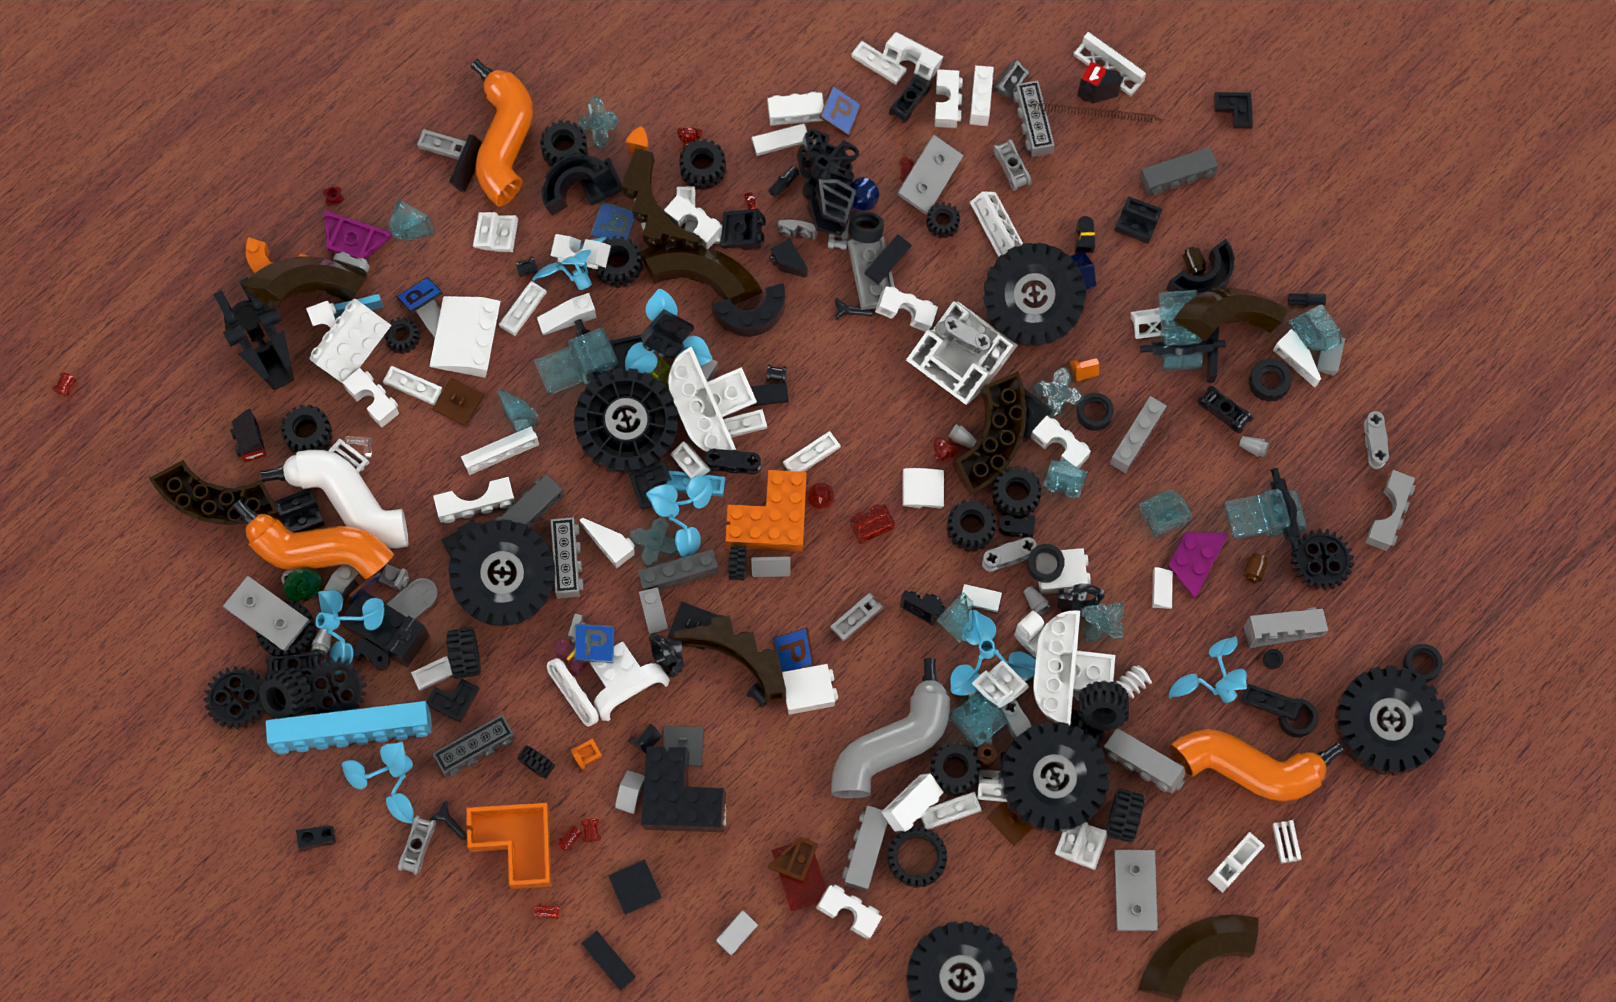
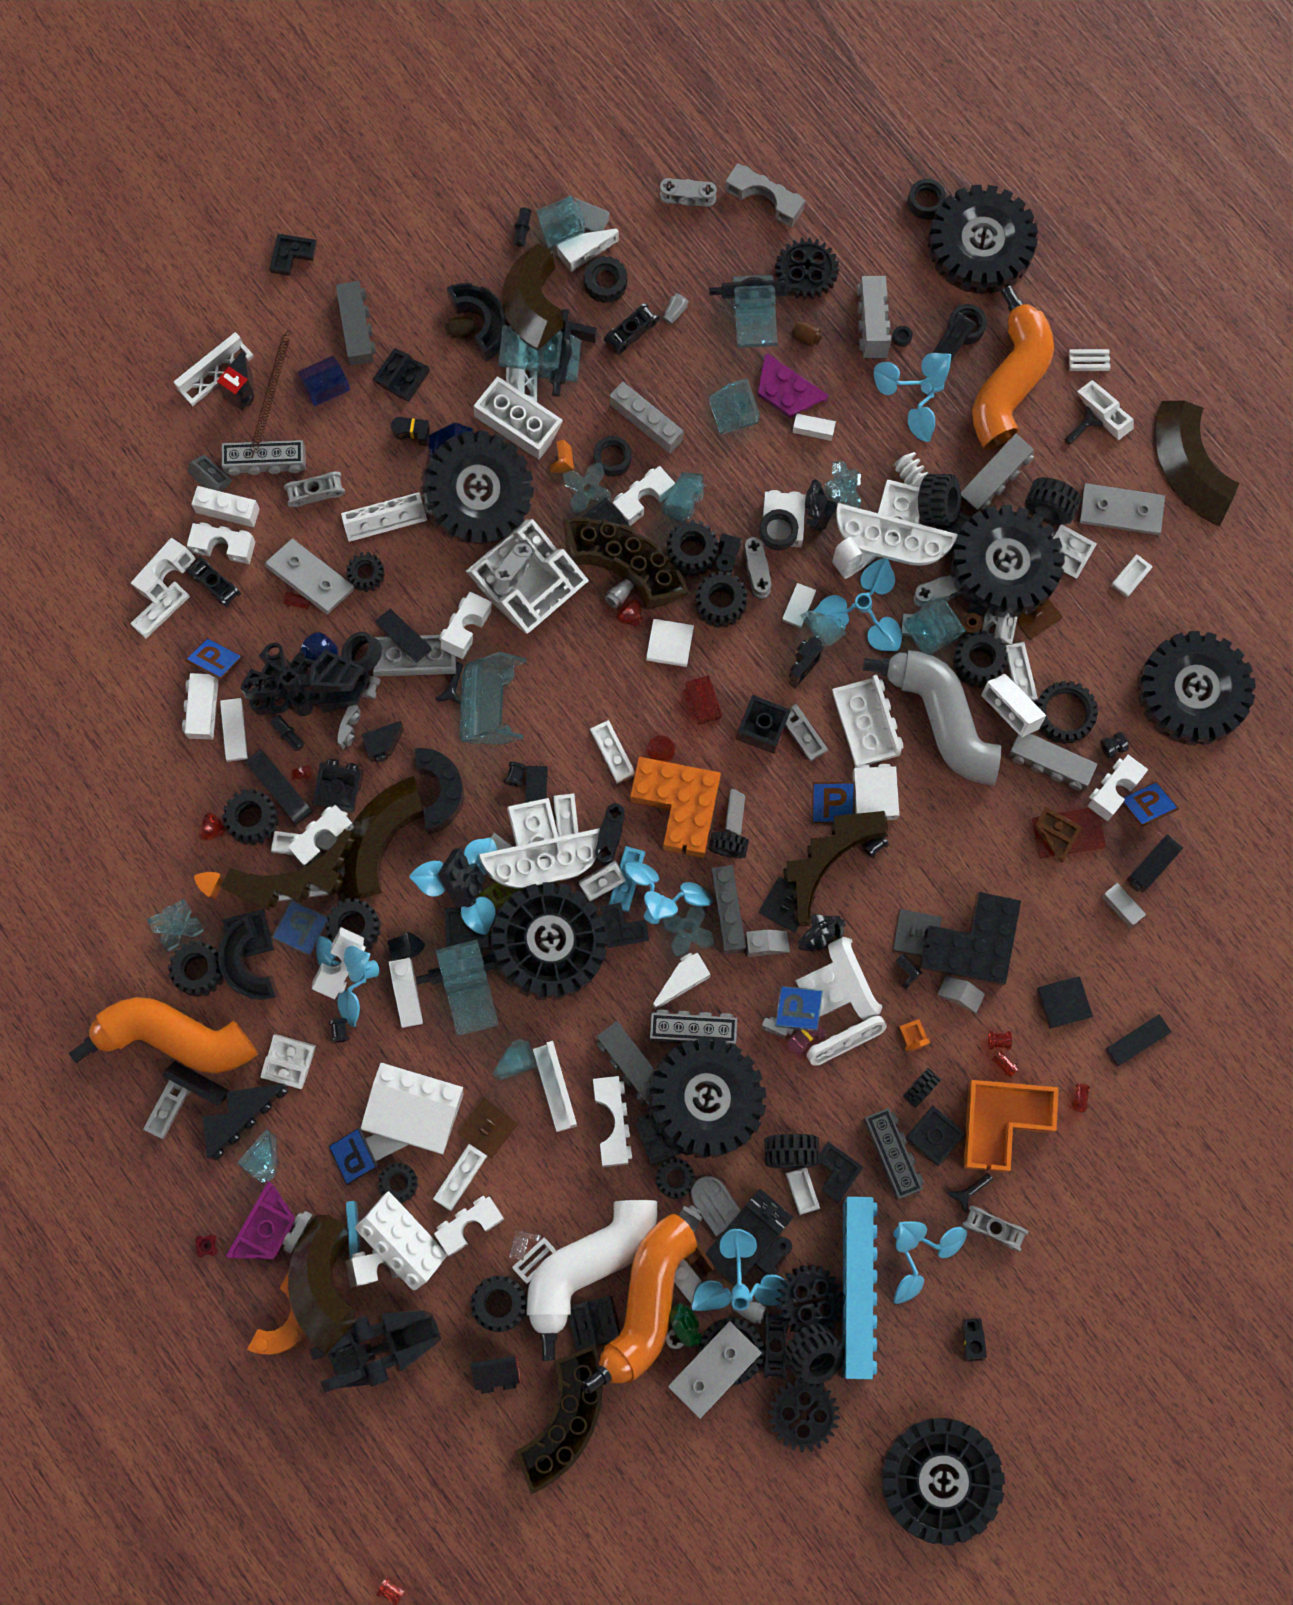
camera: 80 degrees left, 5 degrees up
(189, 853) = (907, 1479): none -> black wheel
(426, 551) = (684, 1168): none -> black tyre
(447, 202) = (244, 1108): none -> black slope
(495, 782) = (935, 1135): none -> black plate
(522, 308) = (387, 1041): white tile -> none
(607, 308) = (405, 946): none -> black tile
(734, 182) = (278, 786): none -> black slope
(777, 953) = (1154, 864): none -> black slope
(838, 945) = (1149, 804): none -> blue piece
(839, 338) = (483, 699): none -> clear light blue windscreen
(856, 577) = (763, 724): none -> black slope
(876, 673) = (867, 721): none -> white bracket
(892, 906) = (1114, 745): none -> black wheel
(1000, 684) = (899, 598): white slope -> none
(1036, 600) = (810, 550): light grey cone -> none
(1068, 907) = (1131, 576): none -> white tile
(1113, 321) = (517, 417): none -> white slope
(1117, 155) = (324, 380): none -> clear blue slope
(1221, 848) = (1088, 421): none -> black piece

